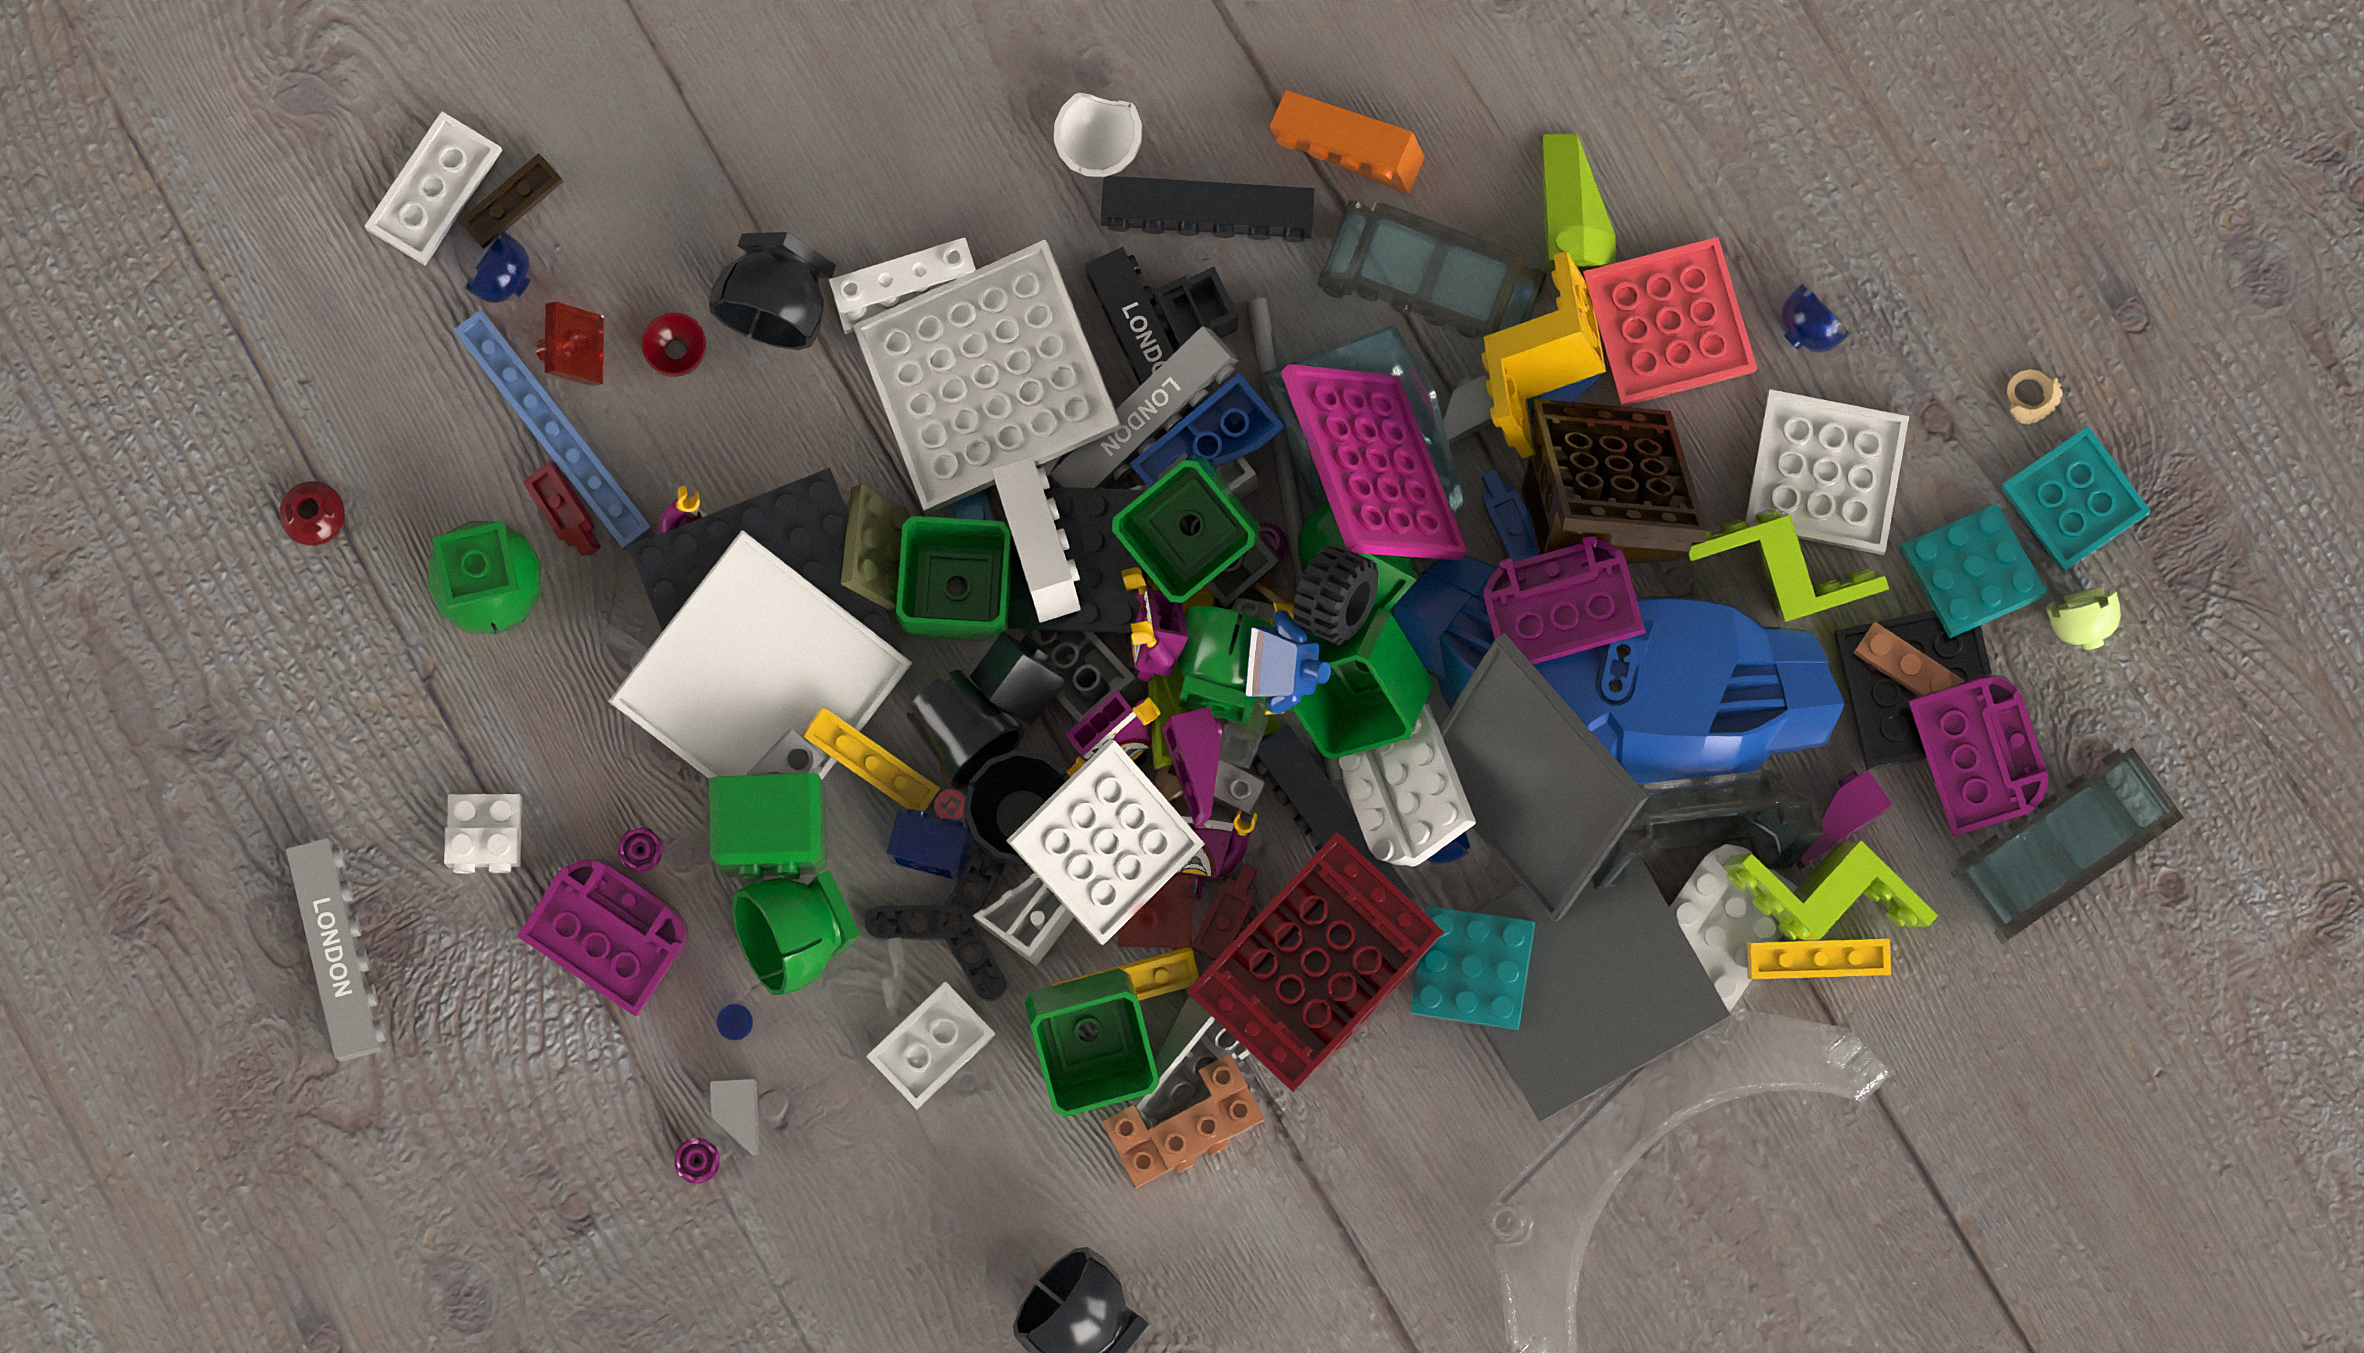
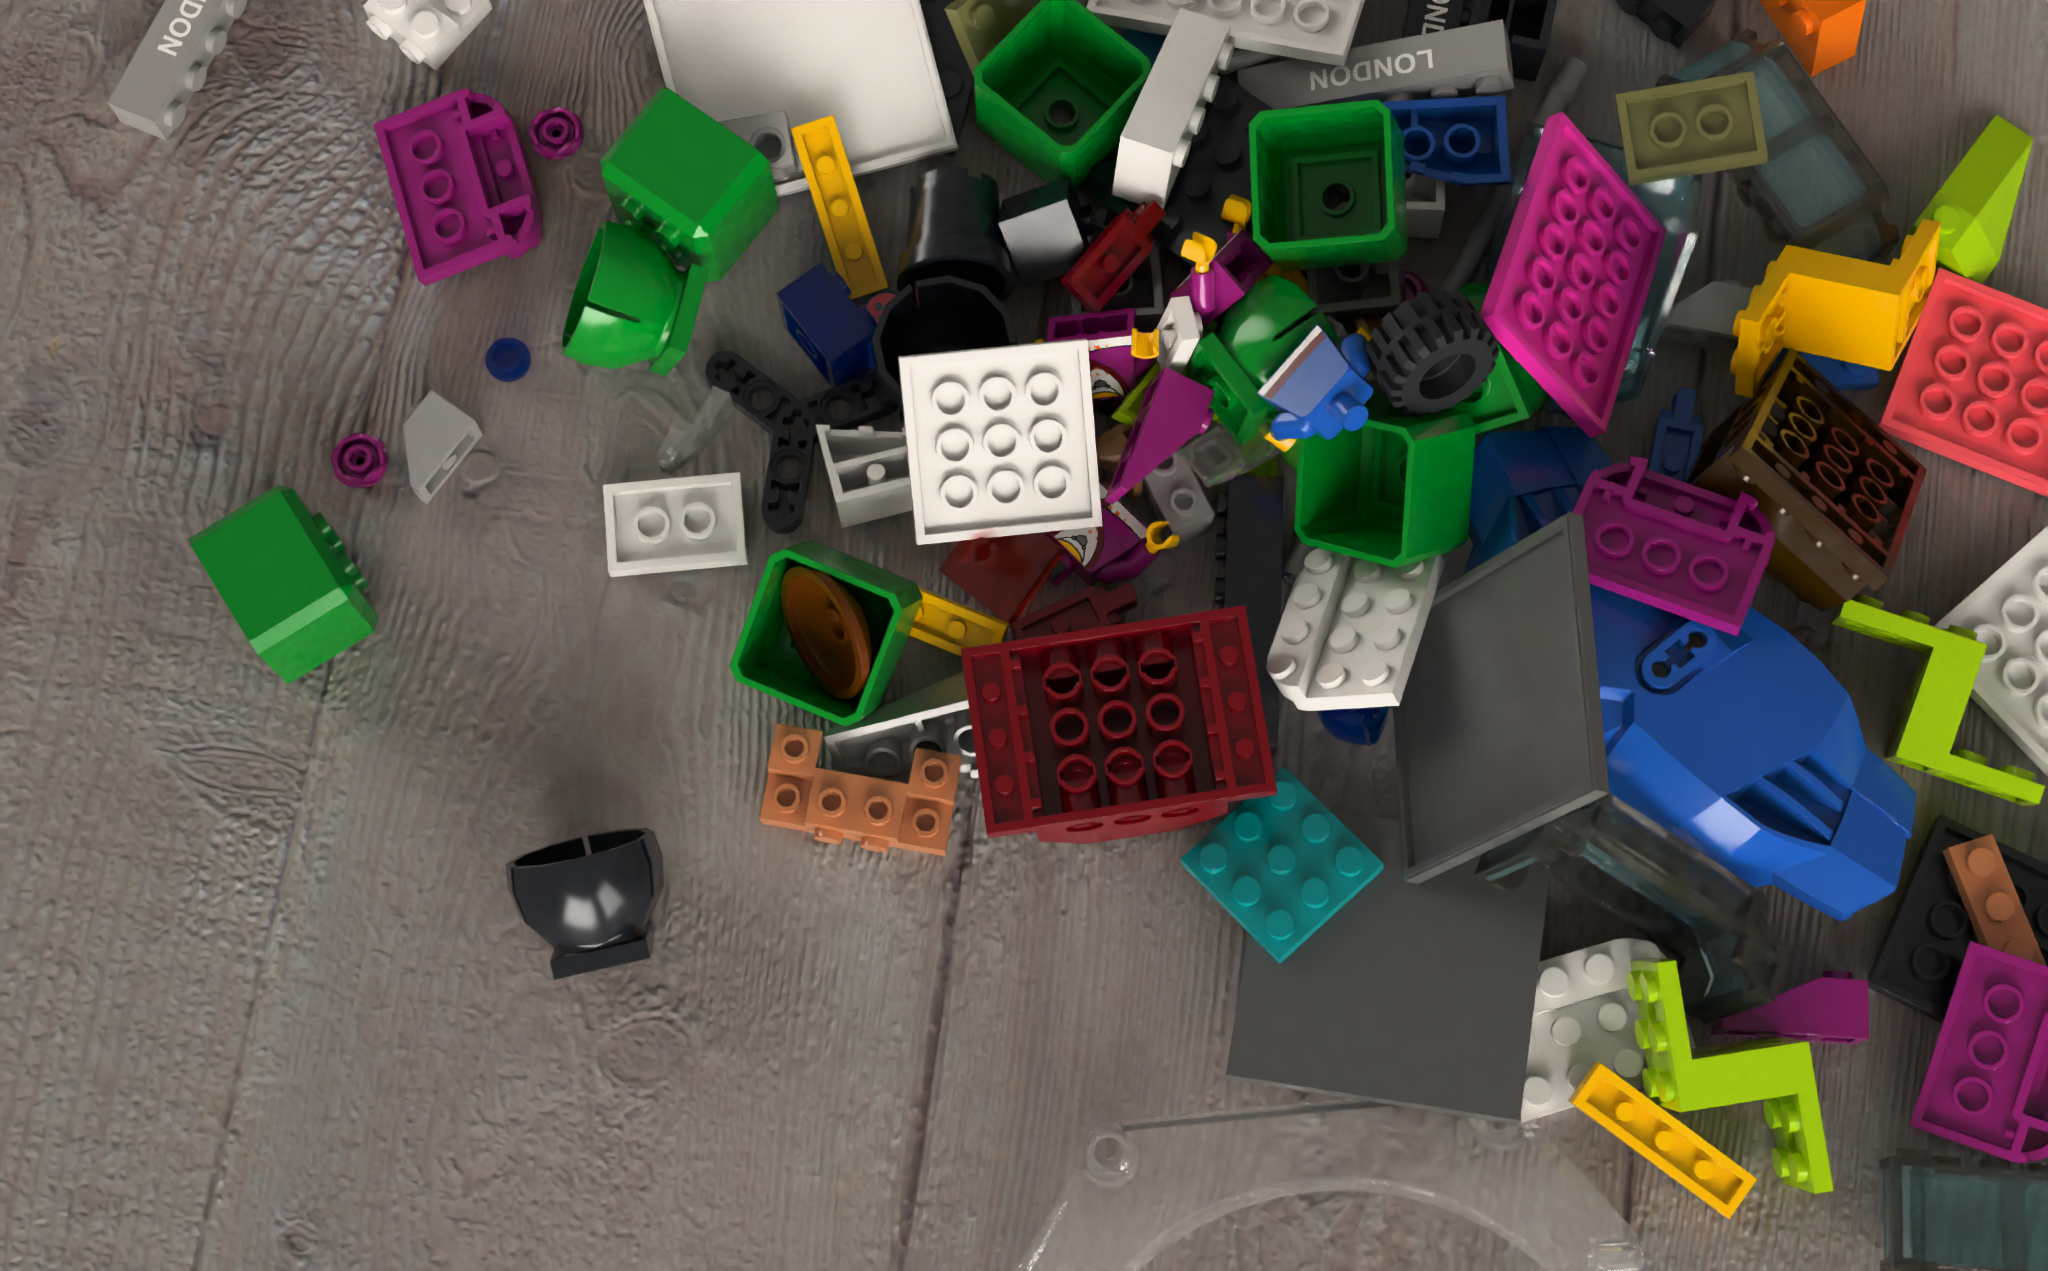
camera: 40 degrees right, 5 degrees down
(730, 1272) = (287, 581): none -> green plate
(1076, 664) = (1113, 256): none -> dark red hinge
(1094, 1043) = (827, 630): none -> reddish brown dish
(1163, 689) = (1179, 334): none -> white plate
(1370, 307) = (1691, 128): none -> olive plate

